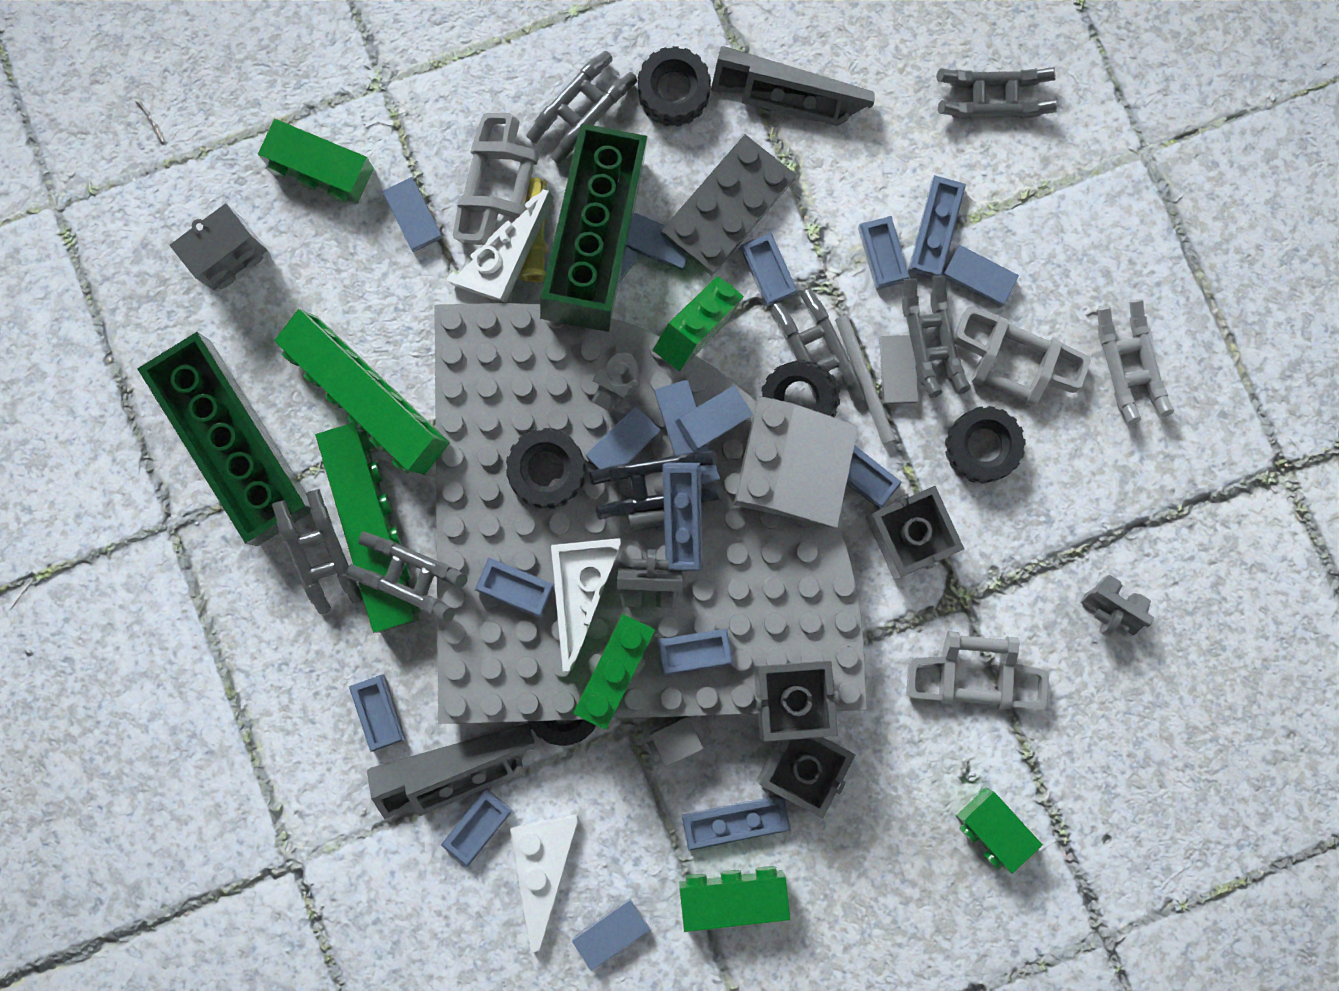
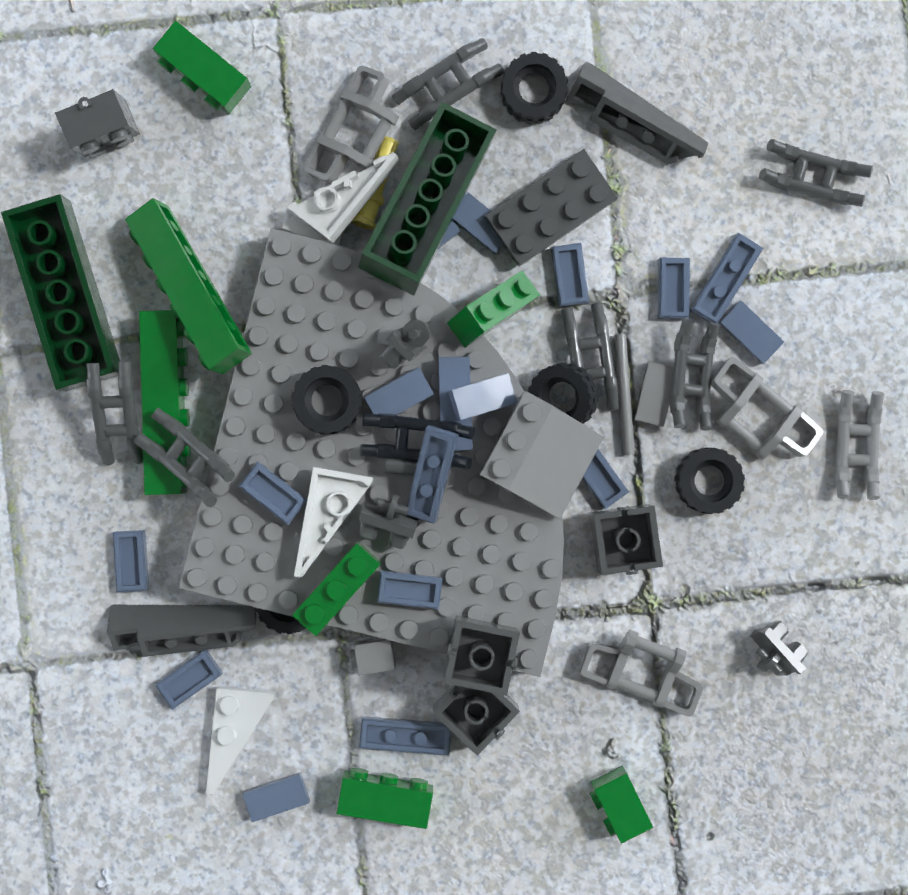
camera: 20 degrees right, 5 degrees up
(412, 214) = (274, 138): sand blue tile -> none

